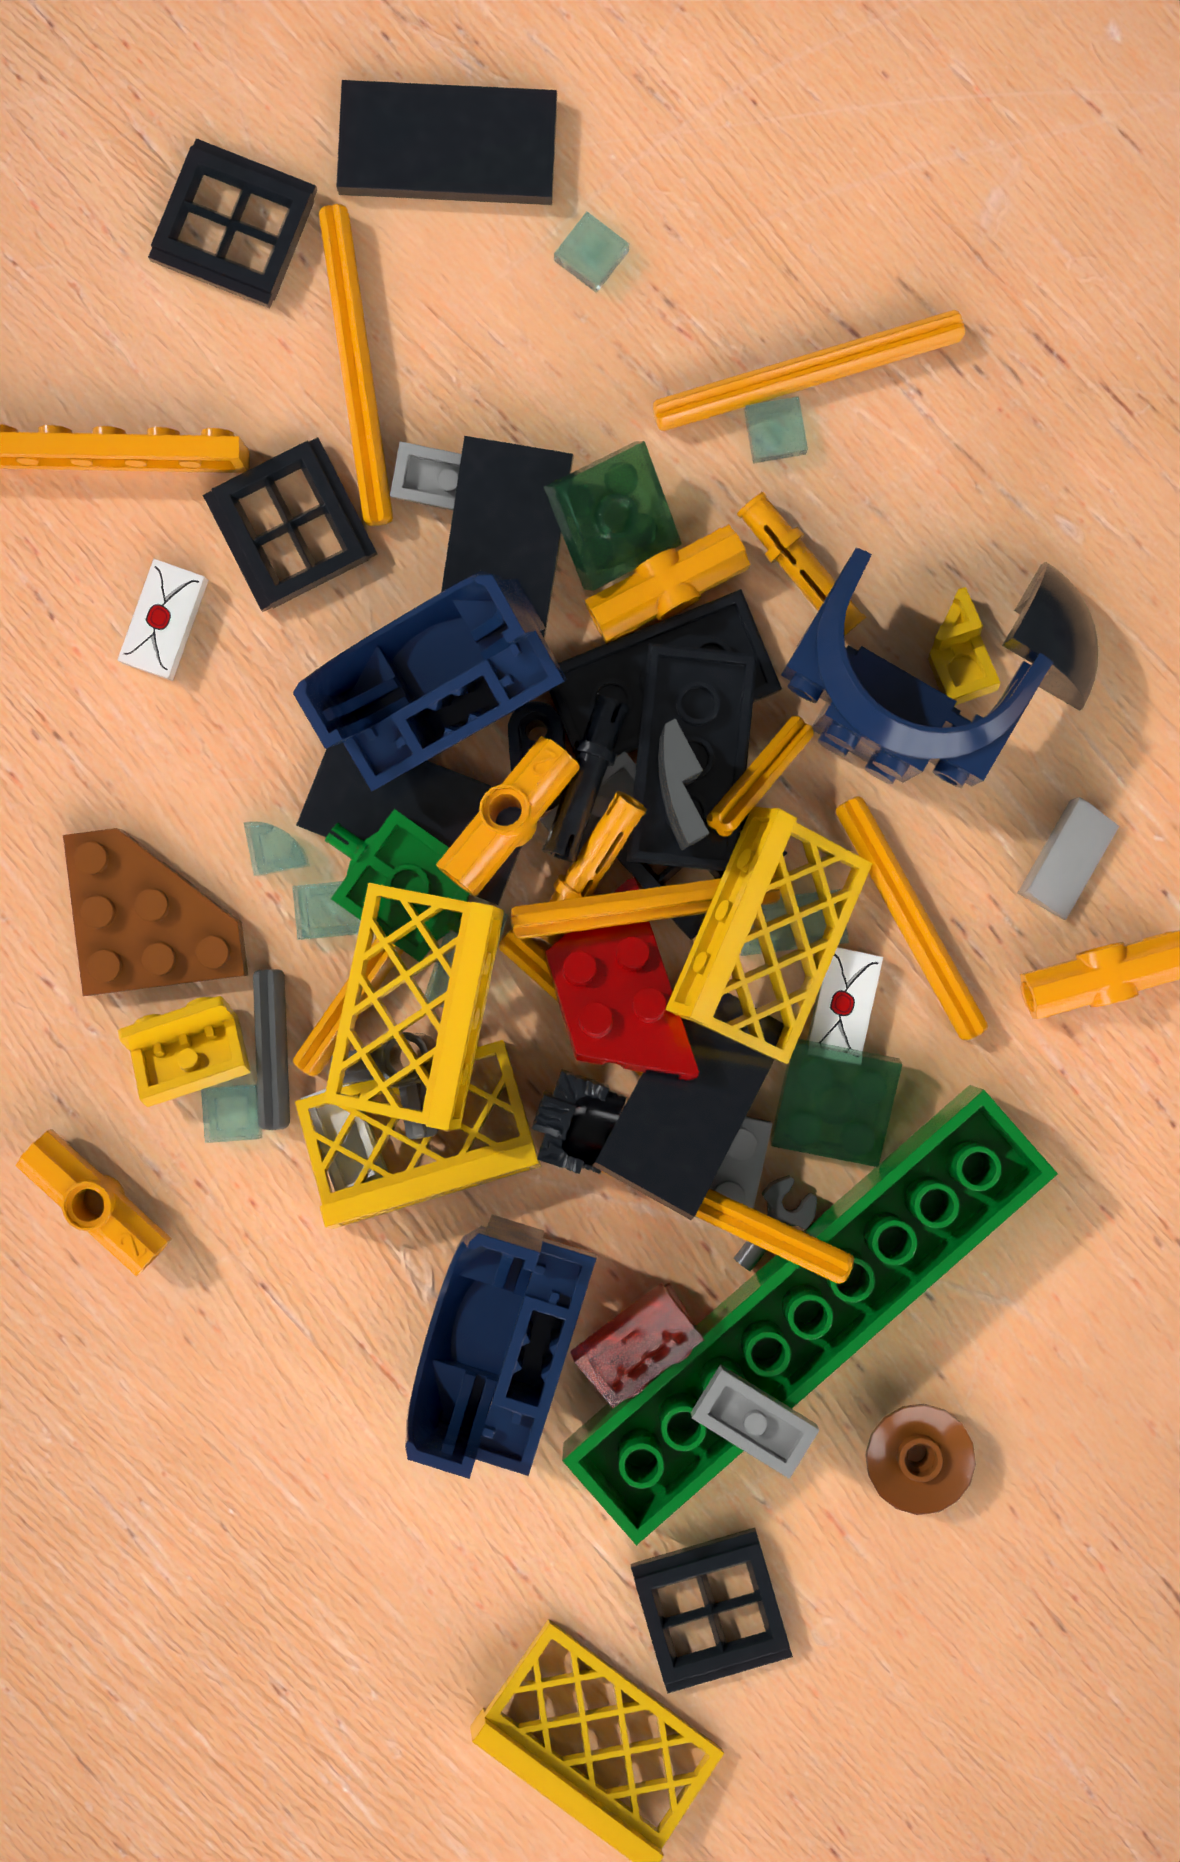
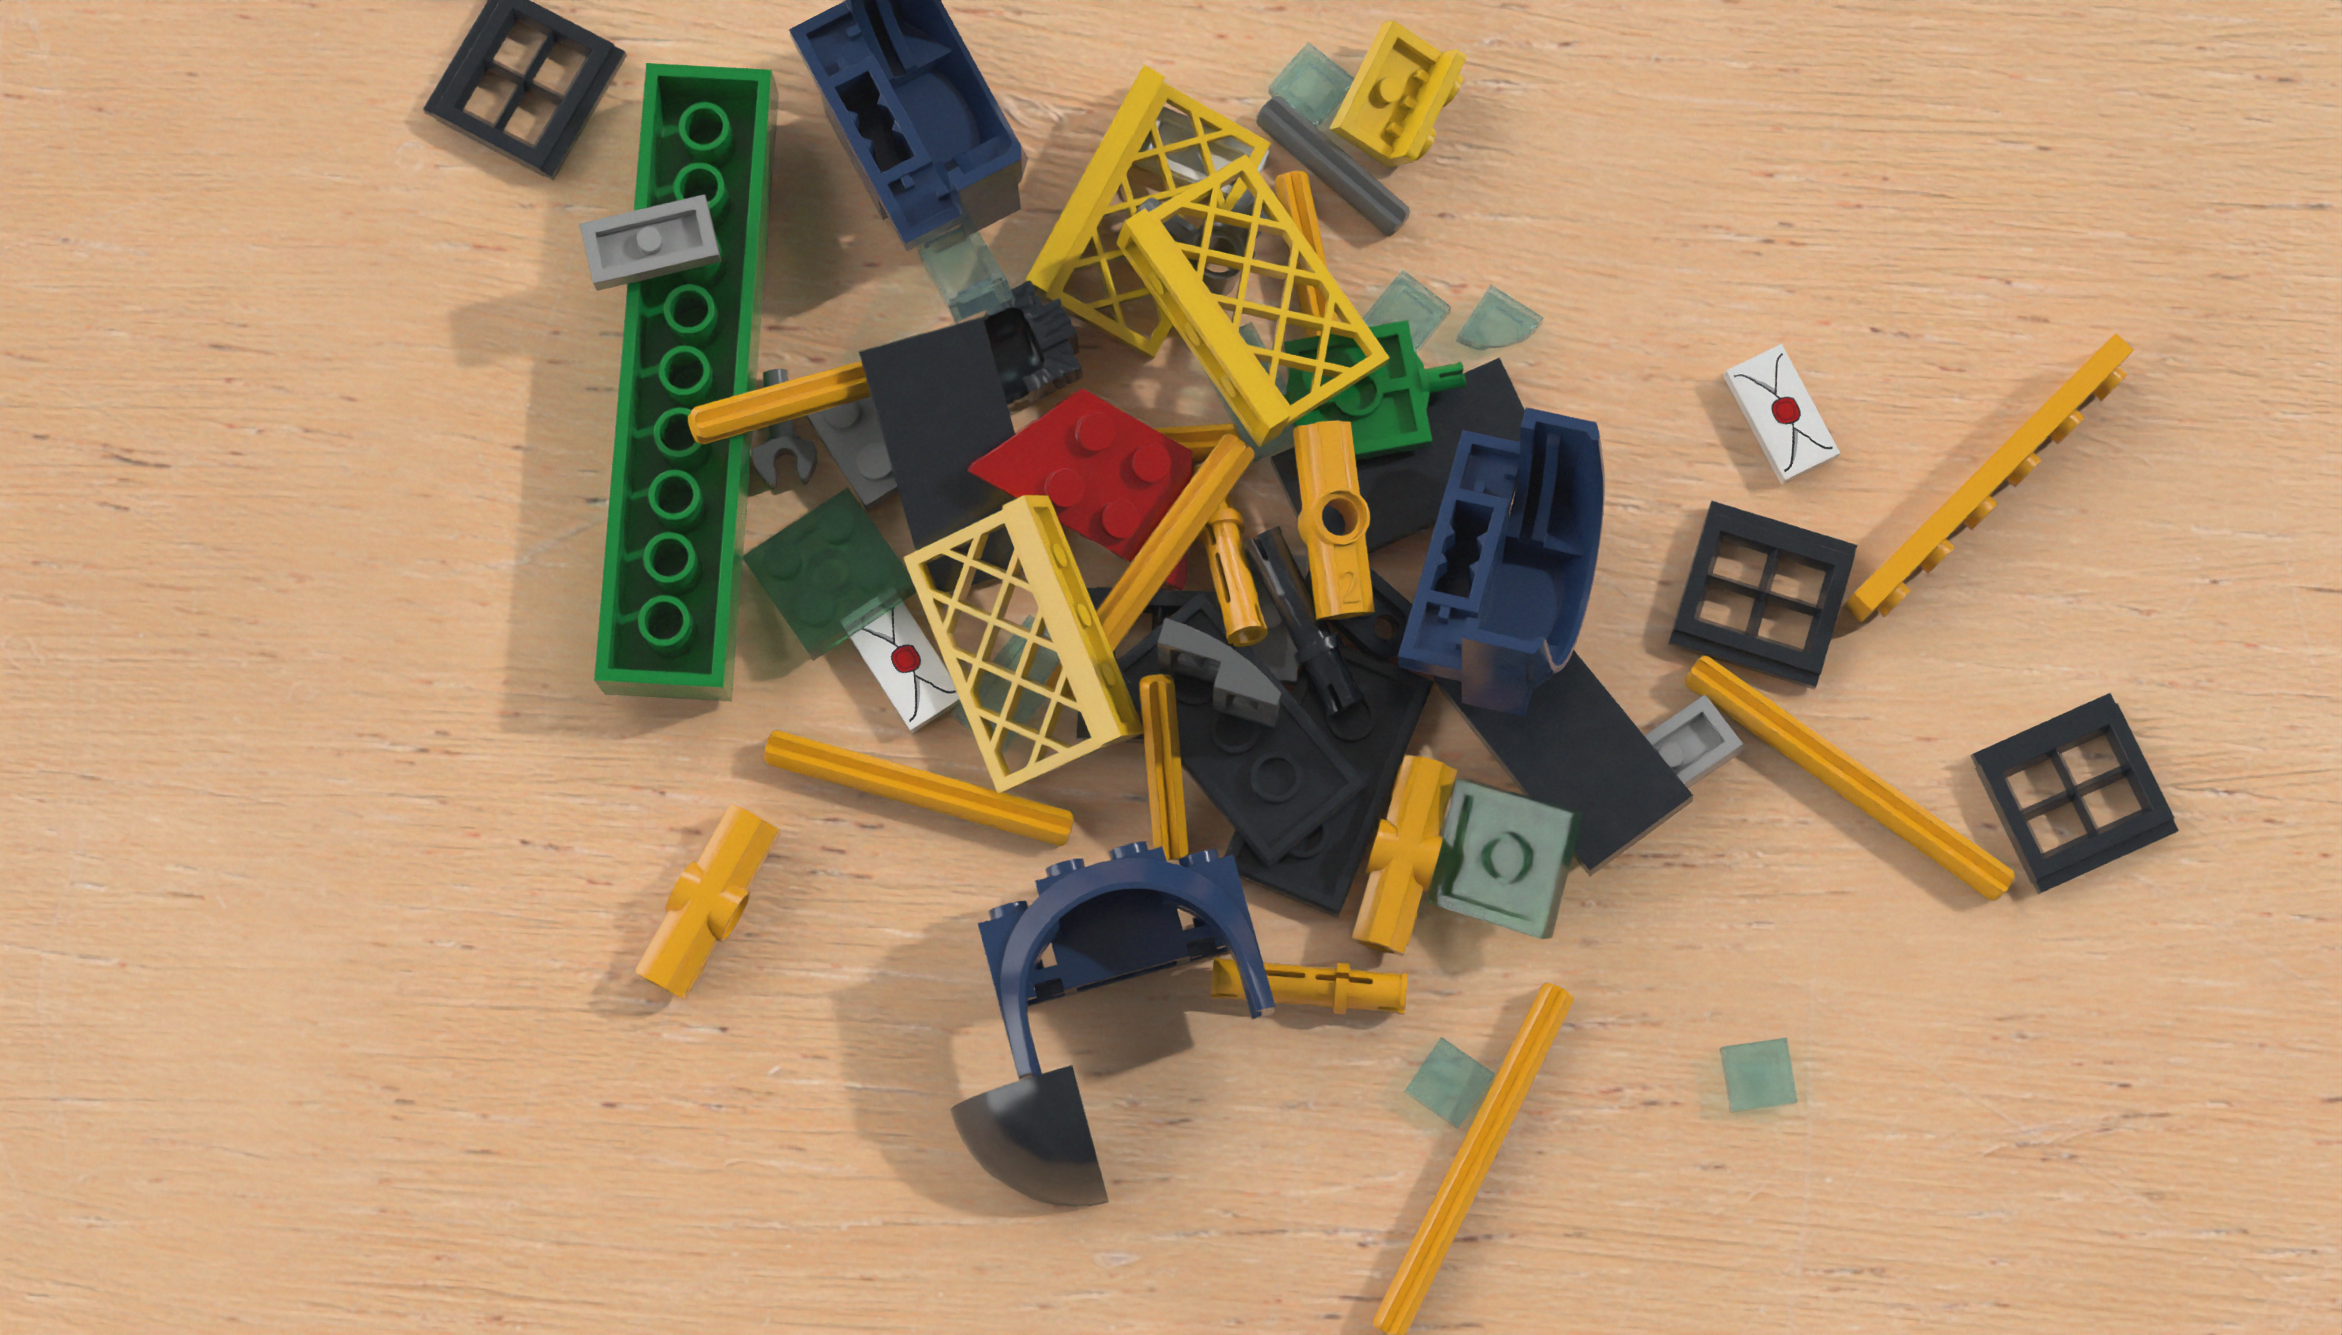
camera: 130 degrees right, 10 degrees down
(143, 920) = (1541, 166): dark orange plate -> none
(446, 142) = (1974, 1043): black tile -> none
(571, 1203) = (964, 273): none -> clear light blue tile
(638, 1345) = (803, 214): clear red bracket -> none
(934, 1480) = (455, 337): dark orange dish -> none
(959, 654) = (1098, 1050): yellow slope -> none
(1068, 858) = (834, 970): light grey slope -> none

